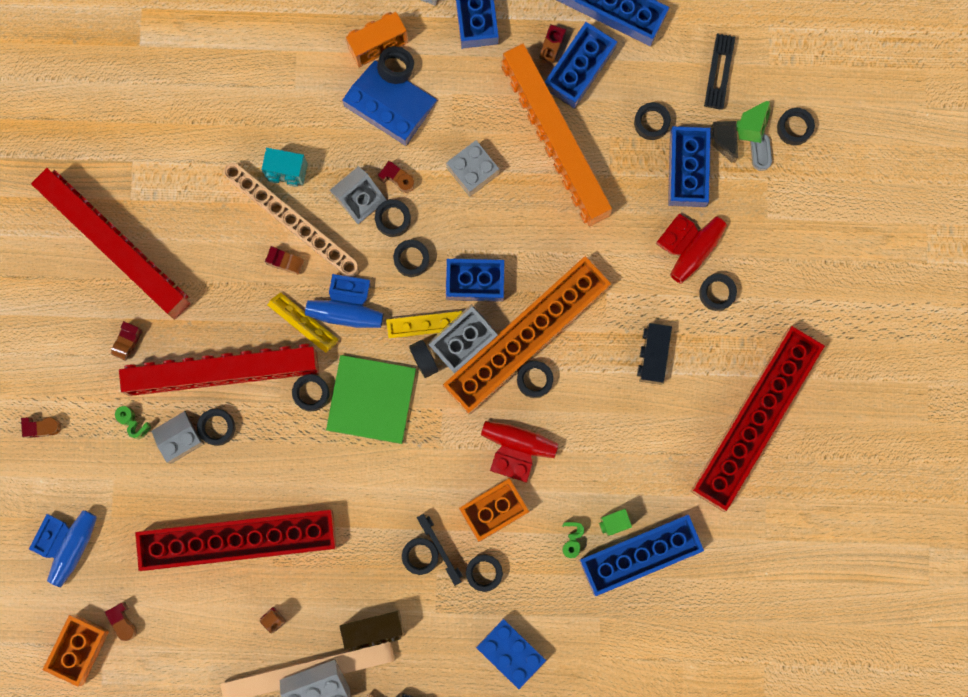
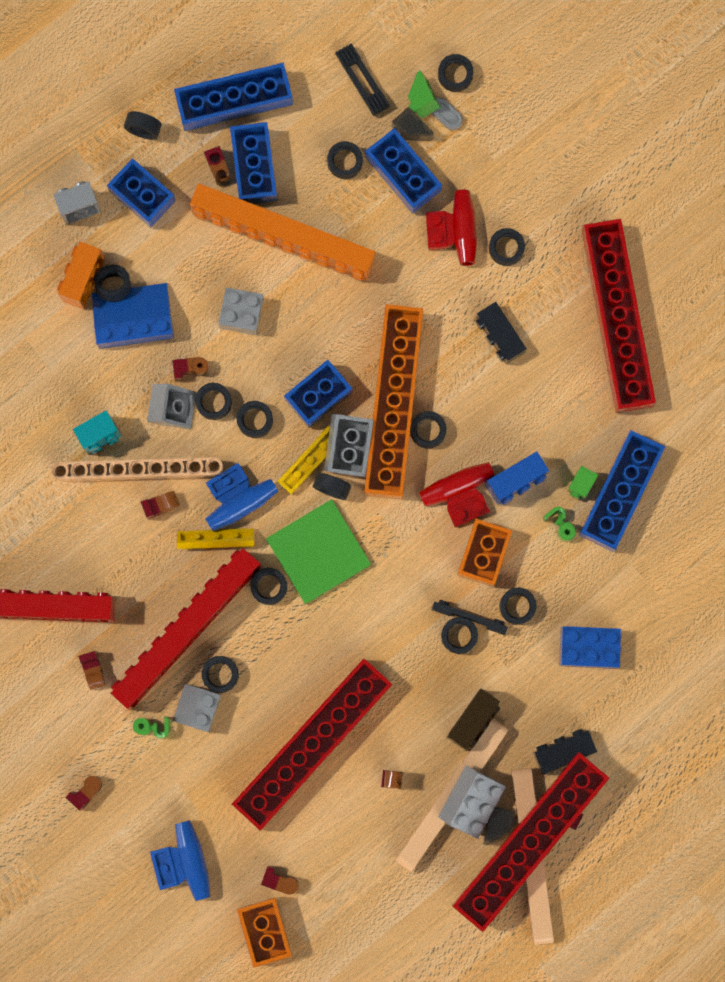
camera: 40 degrees left, 0 degrees up
(568, 476) = (517, 479): none -> blue brick

